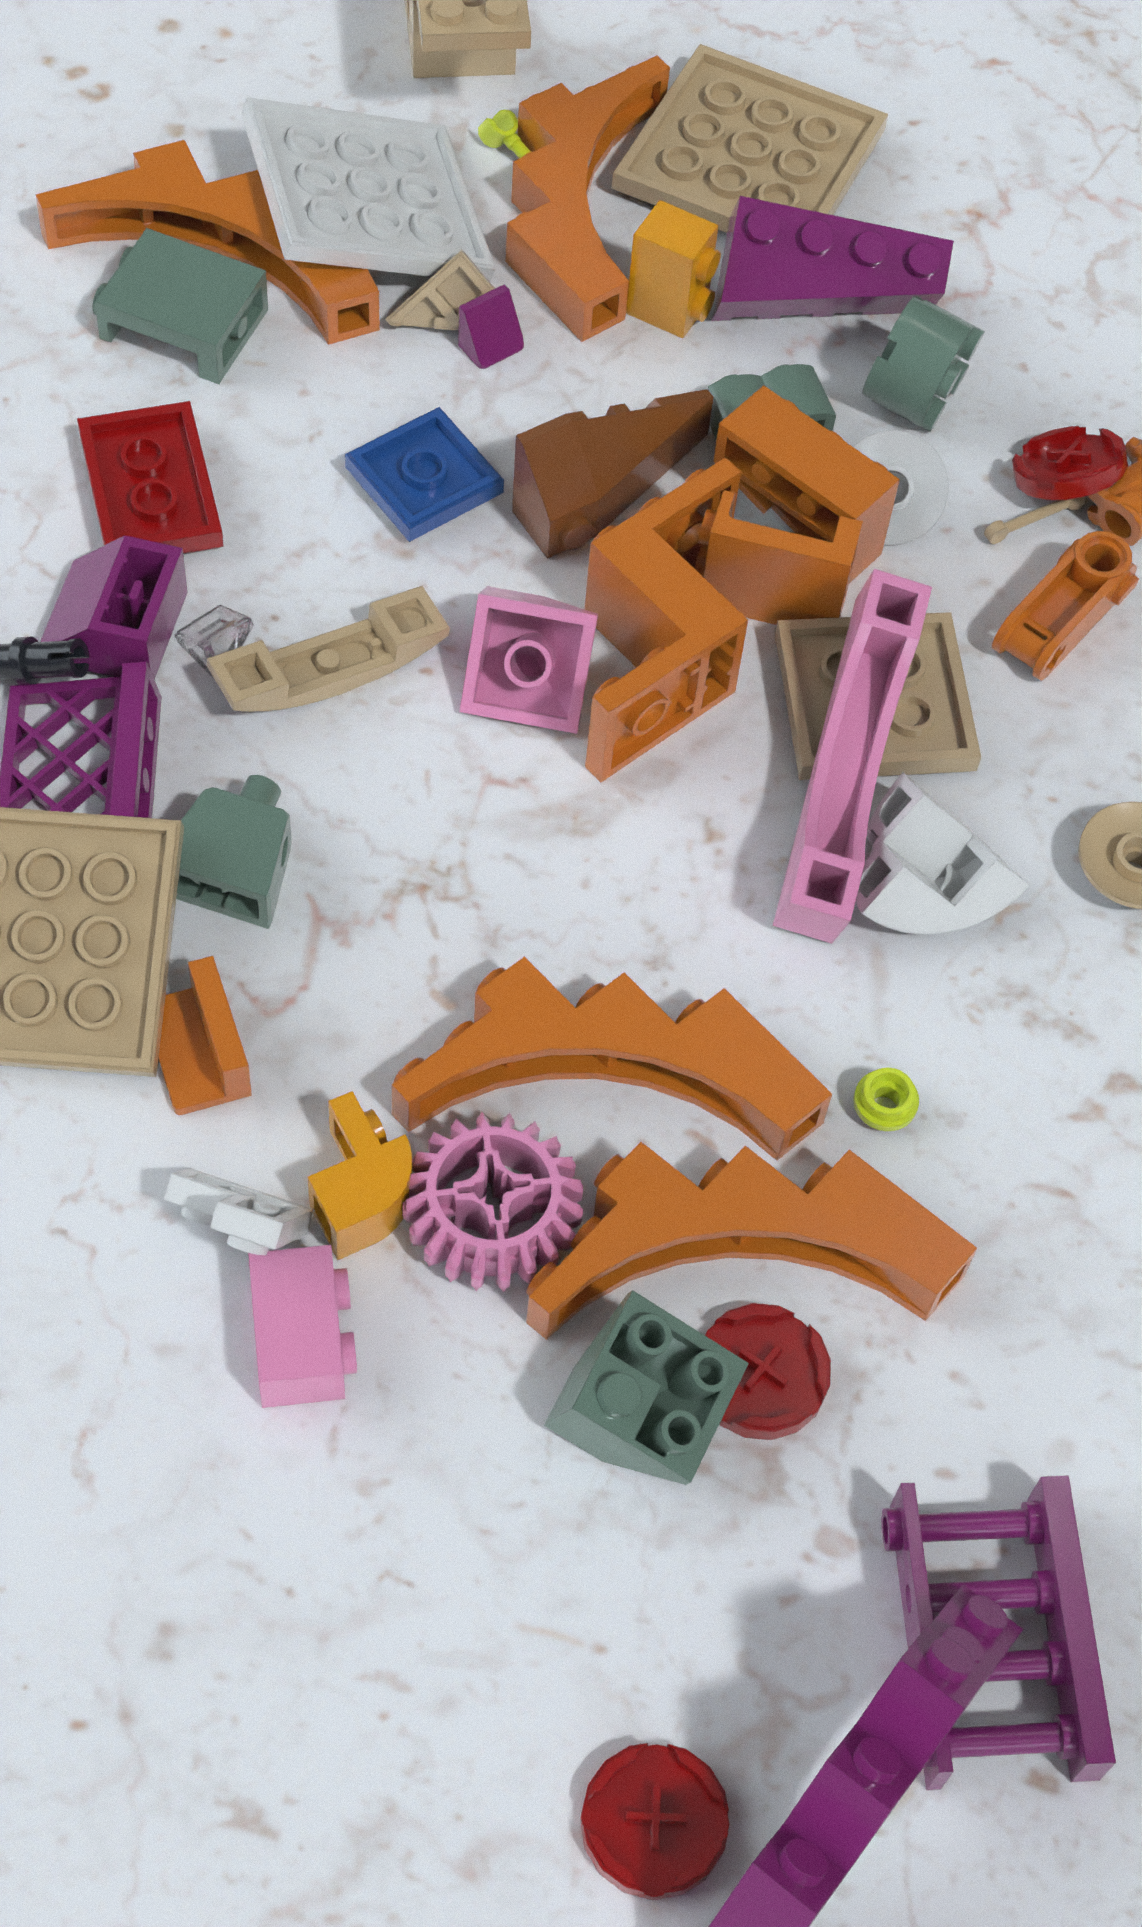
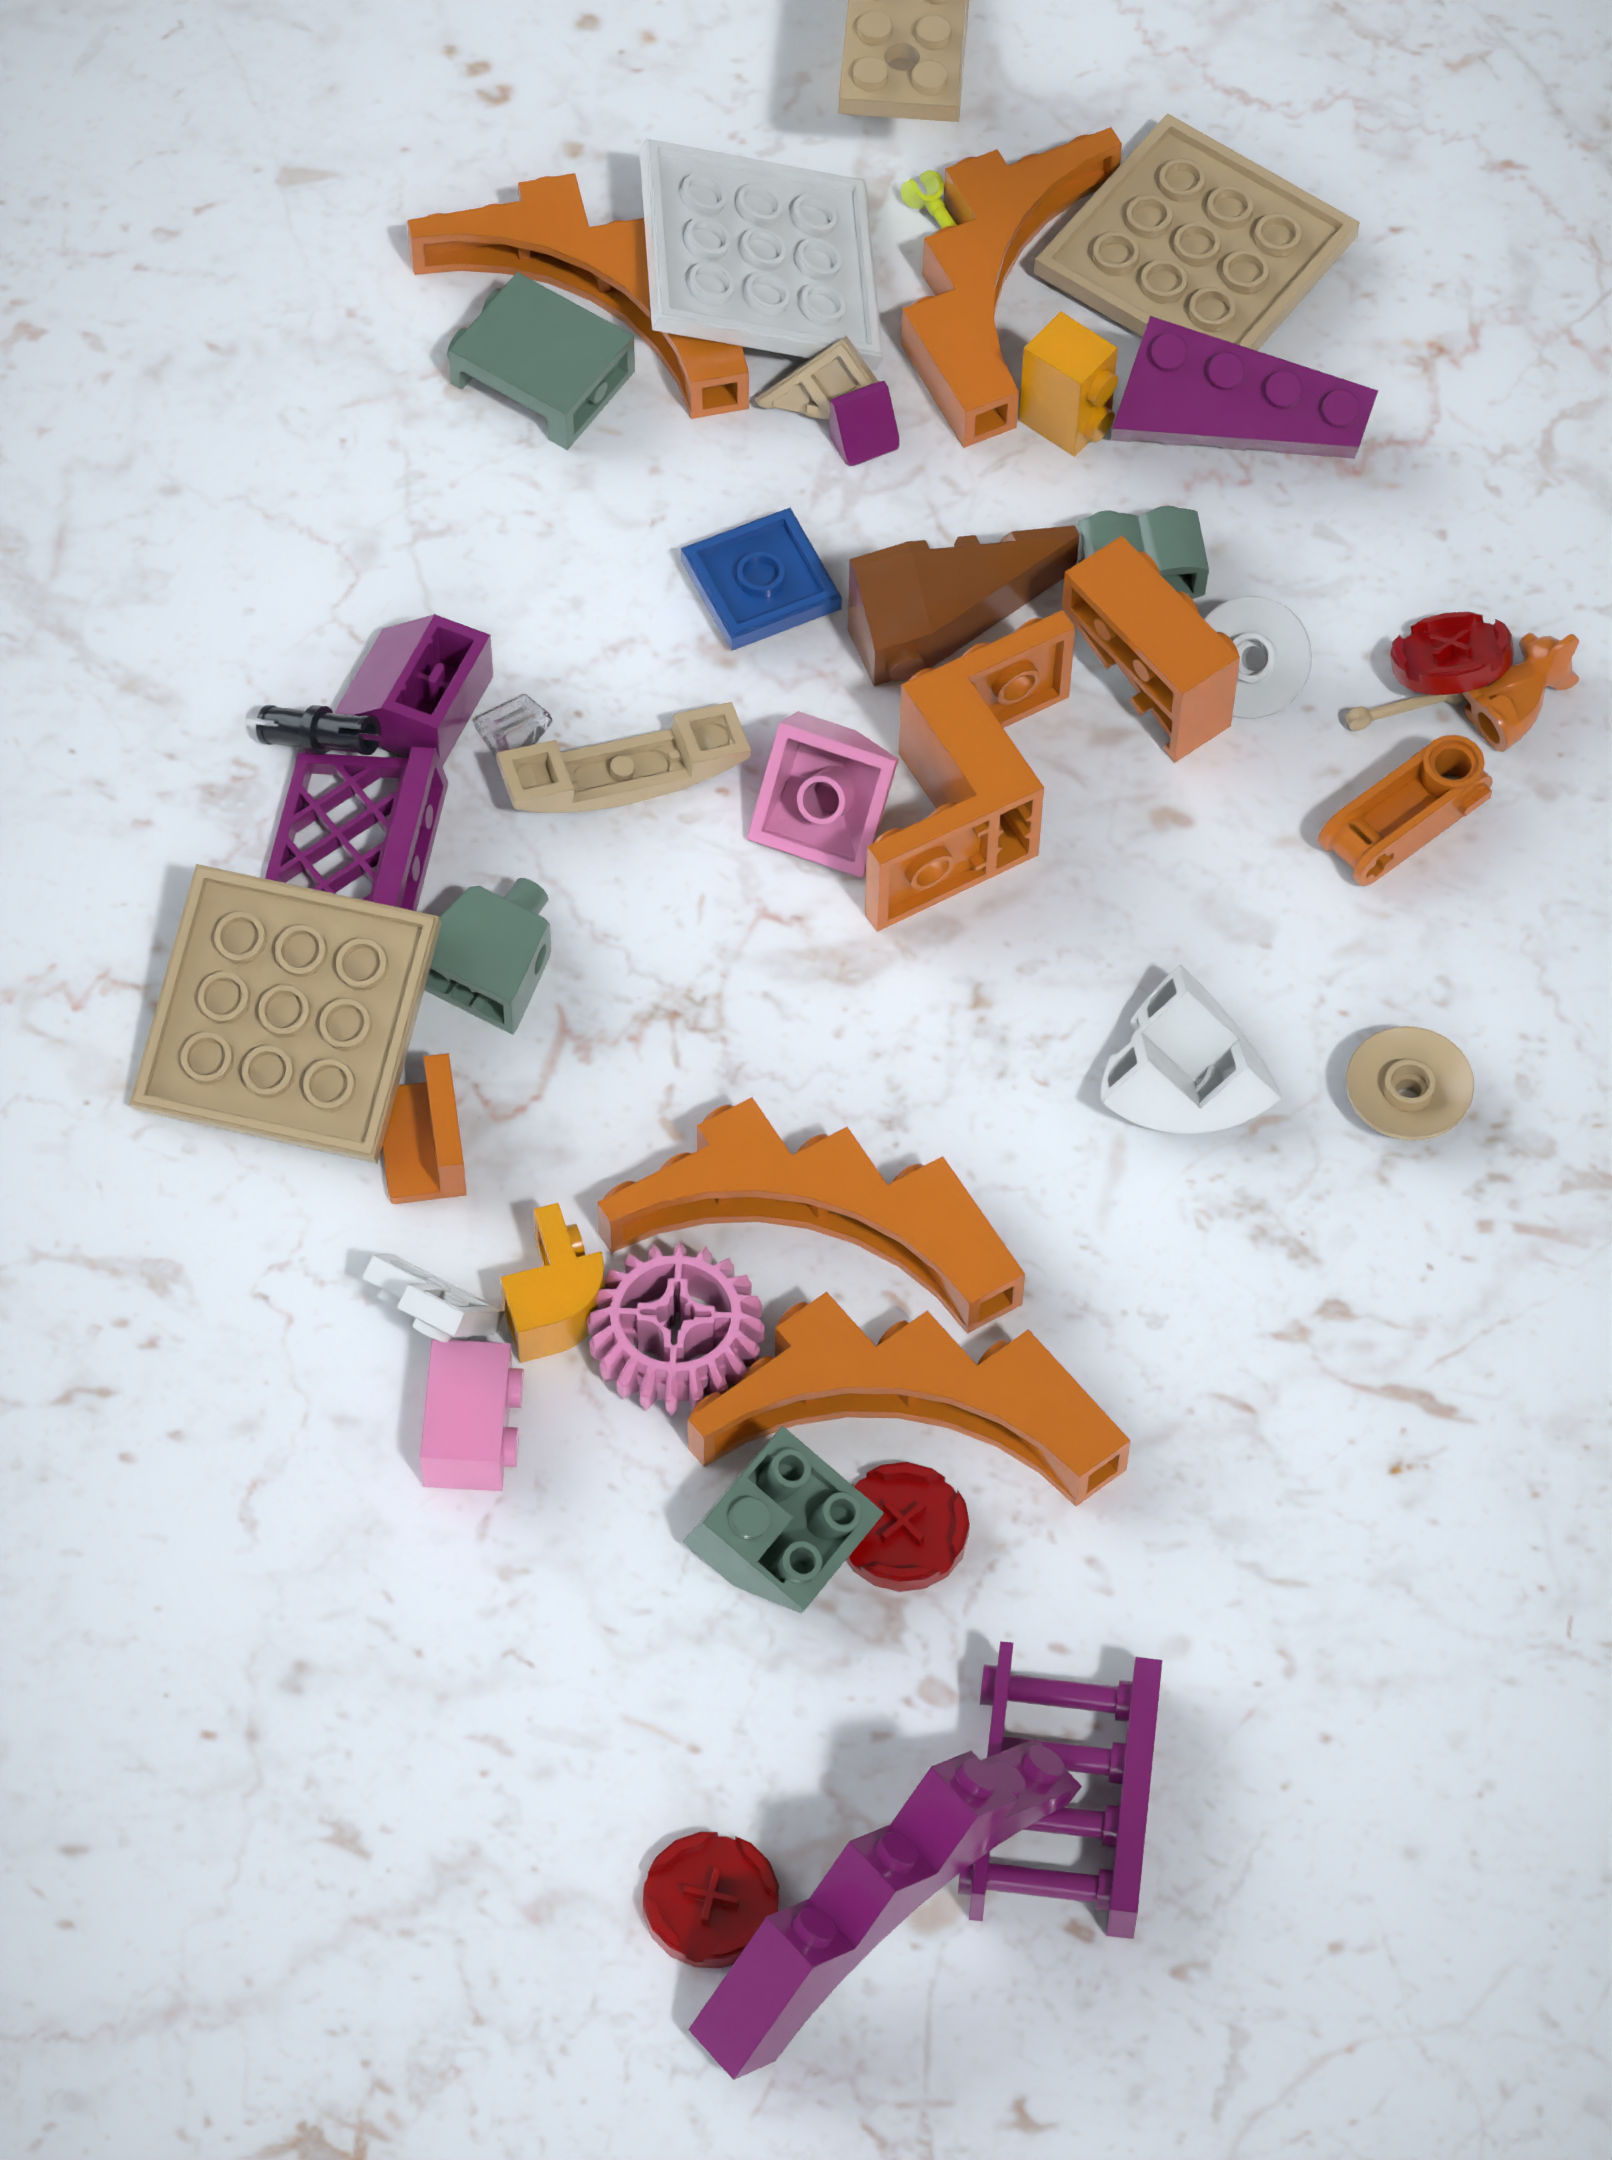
camera: 15 degrees right, 0 degrees up
(151, 477) = (475, 549): red plate -> none
(775, 571) = (1100, 738): orange panel -> none
(835, 815) = (1126, 941): bright pink arch -> none
(890, 1084) = (1090, 1274): neon yellow plate -> none
(922, 362) = (1314, 521): sand green brick -> none
(933, 714) = (1180, 879): tan plate -> none

